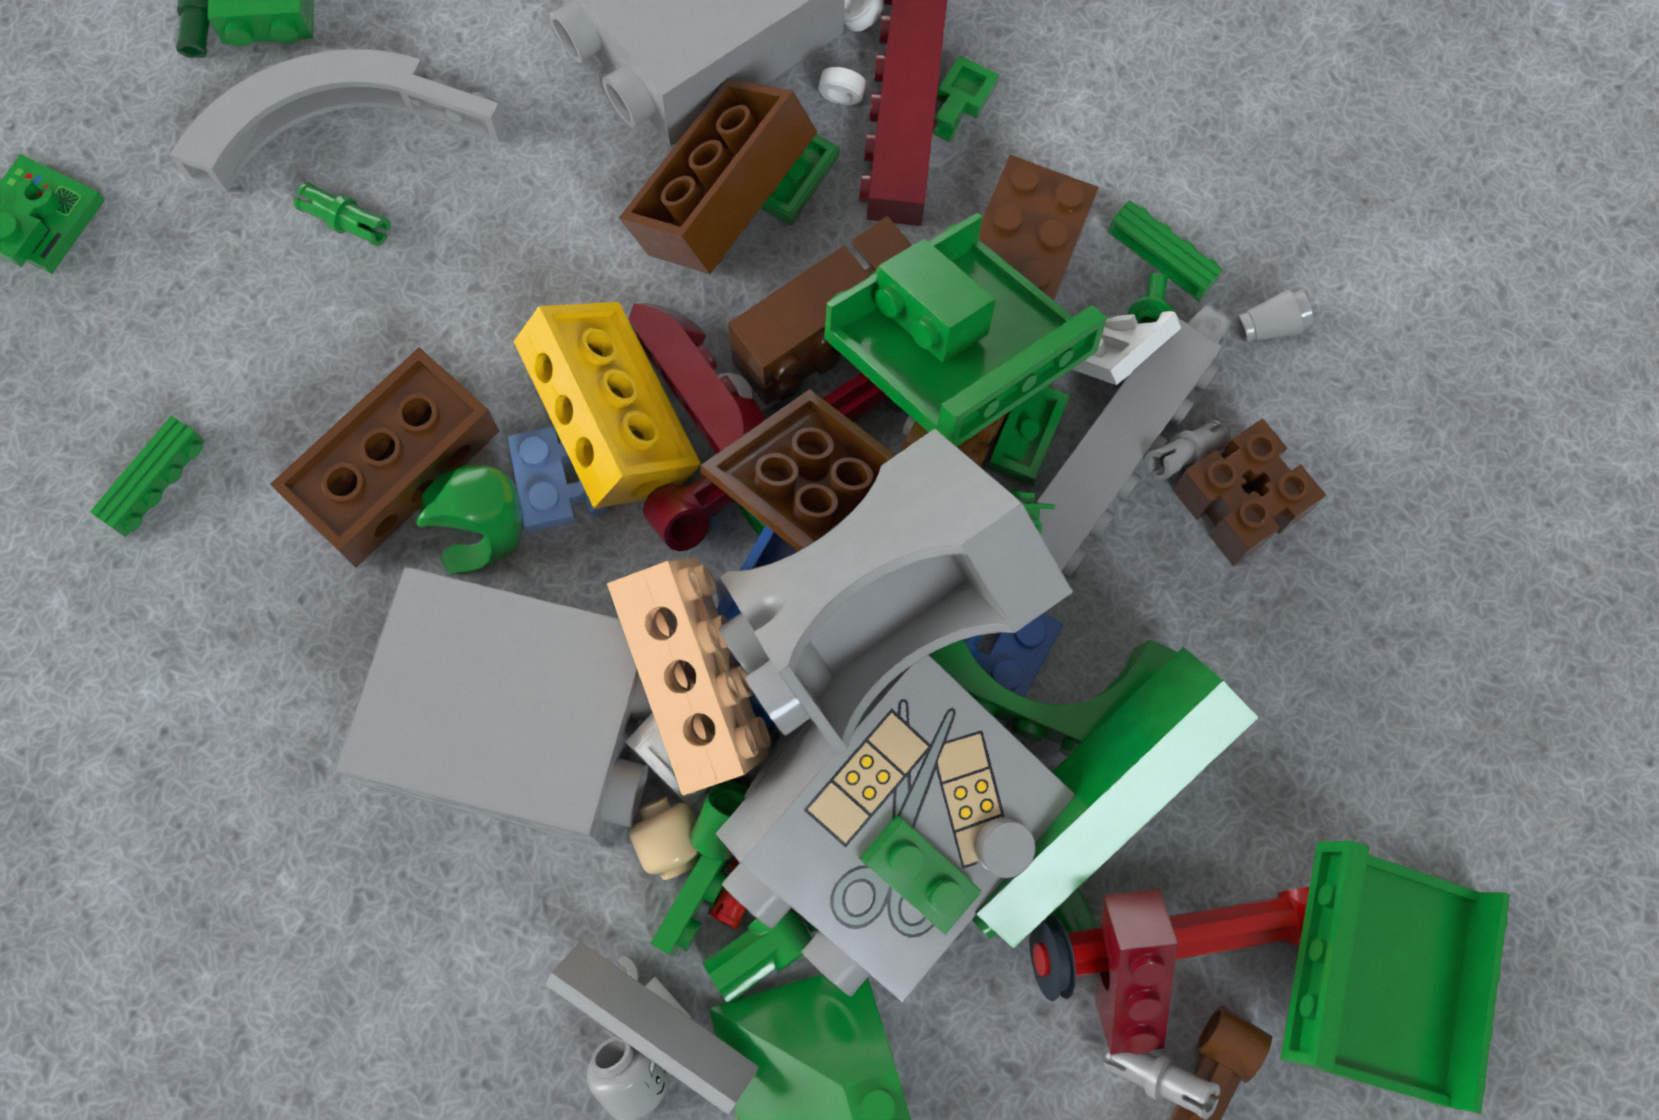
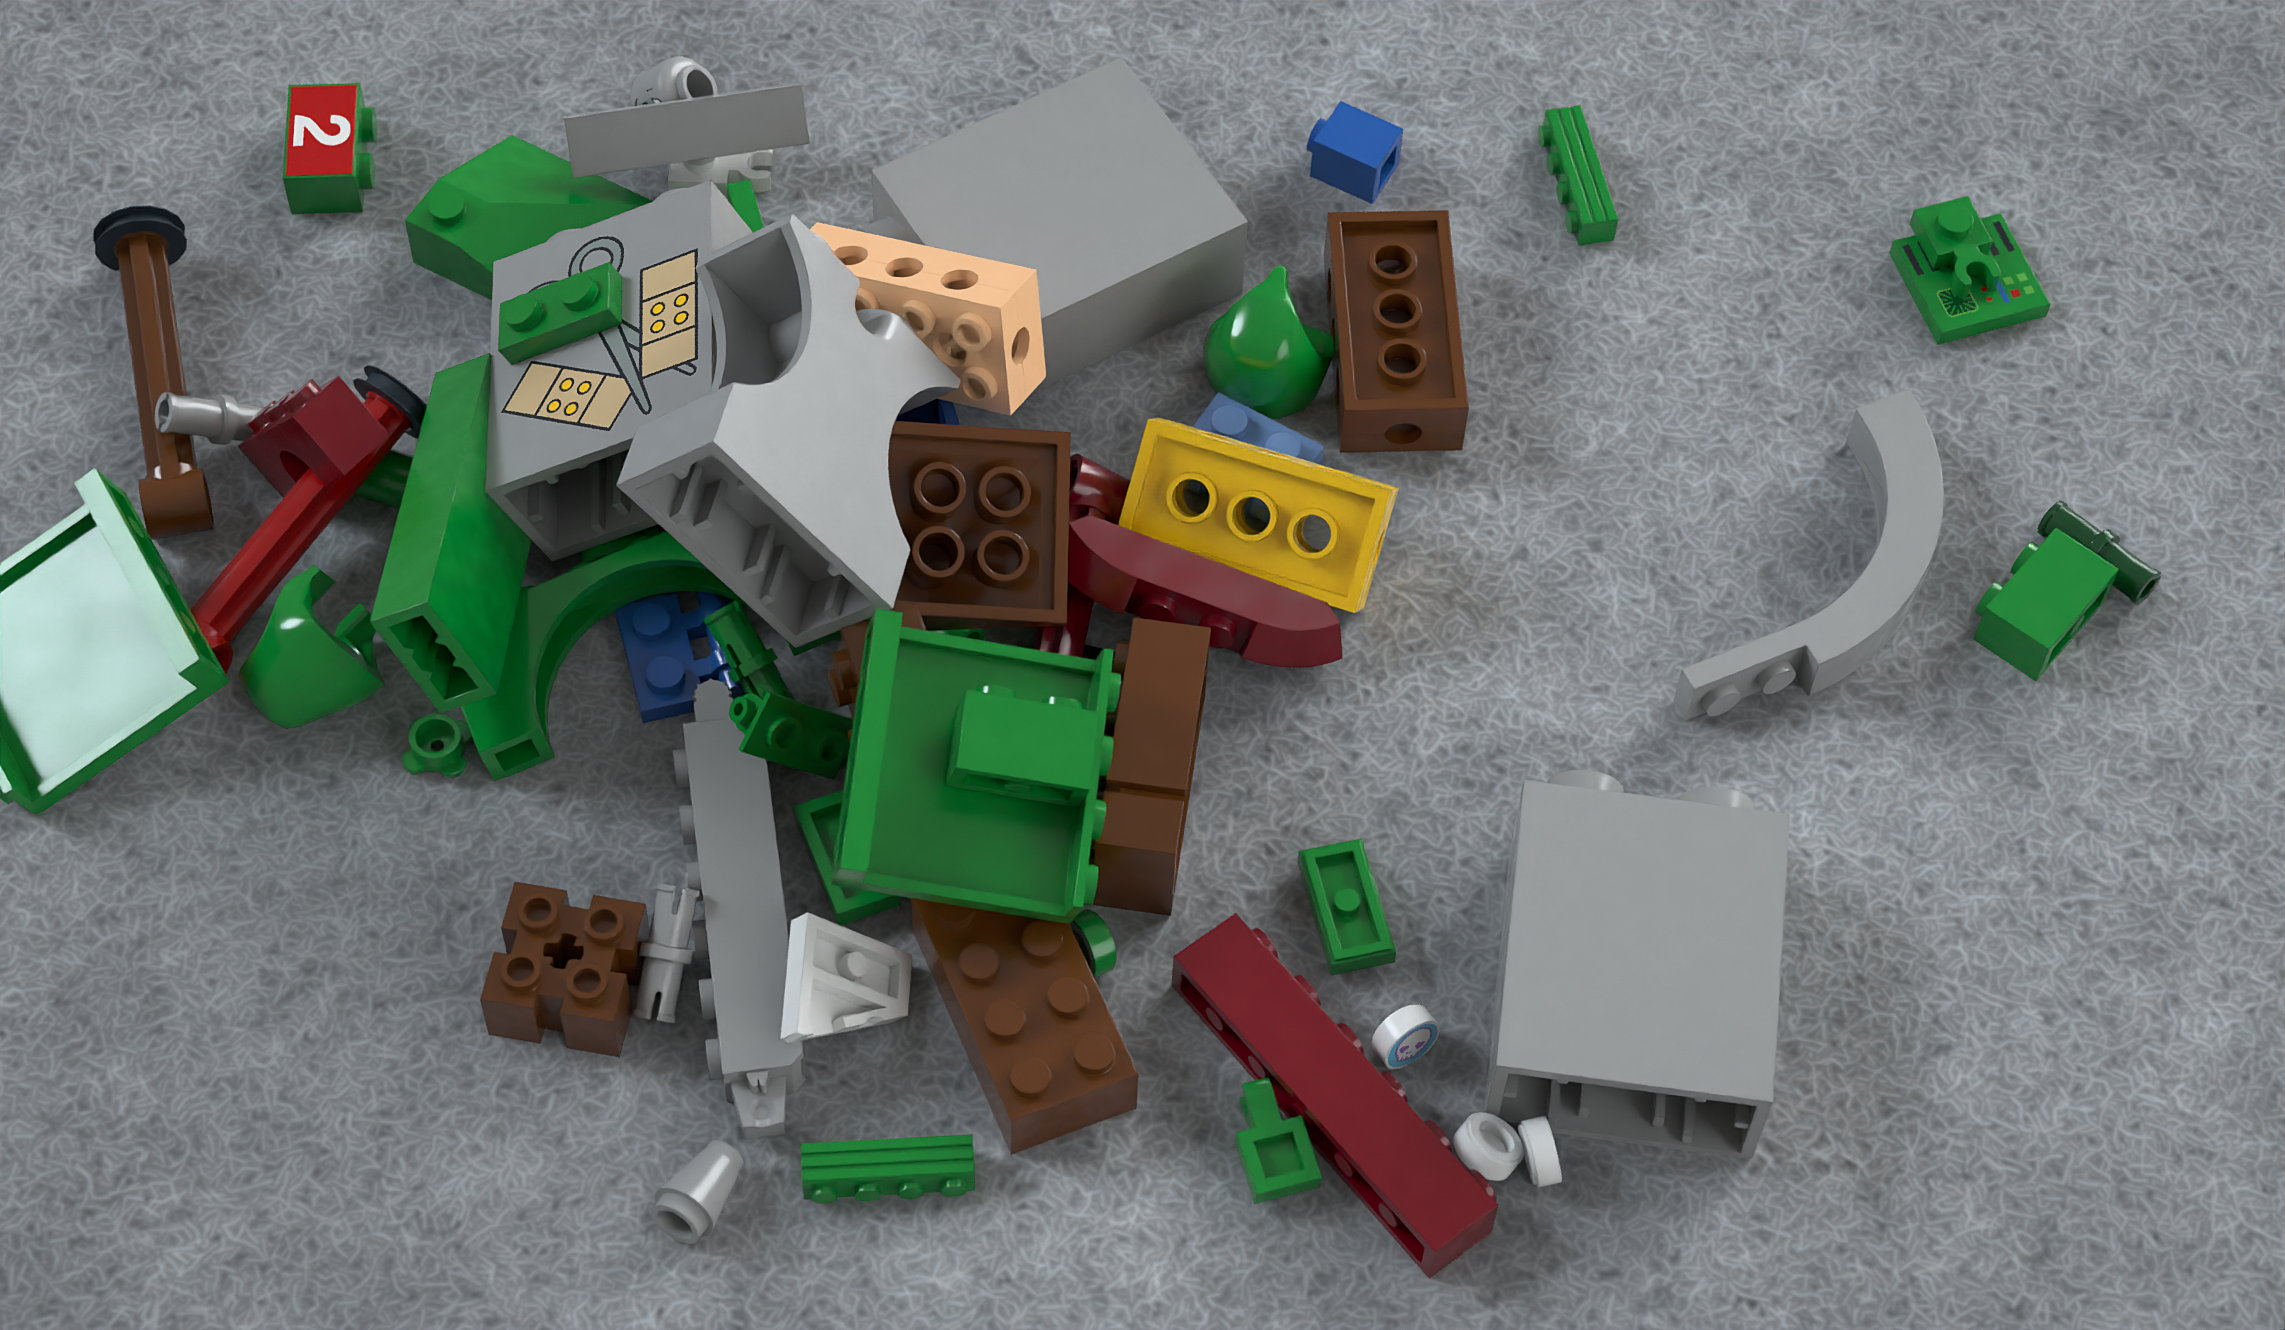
camera: 135 degrees right, 15 degrees down
(254, 612) = (1354, 151): none -> blue brick
(342, 214) = (1712, 497): green pin -> none
(719, 174) = (1402, 802): reddish brown brick -> none
(1005, 847) = (508, 395): light grey tile -> none
(1150, 307) = (834, 1083): green plate -> none
(1268, 831) = (301, 667): none -> green piece

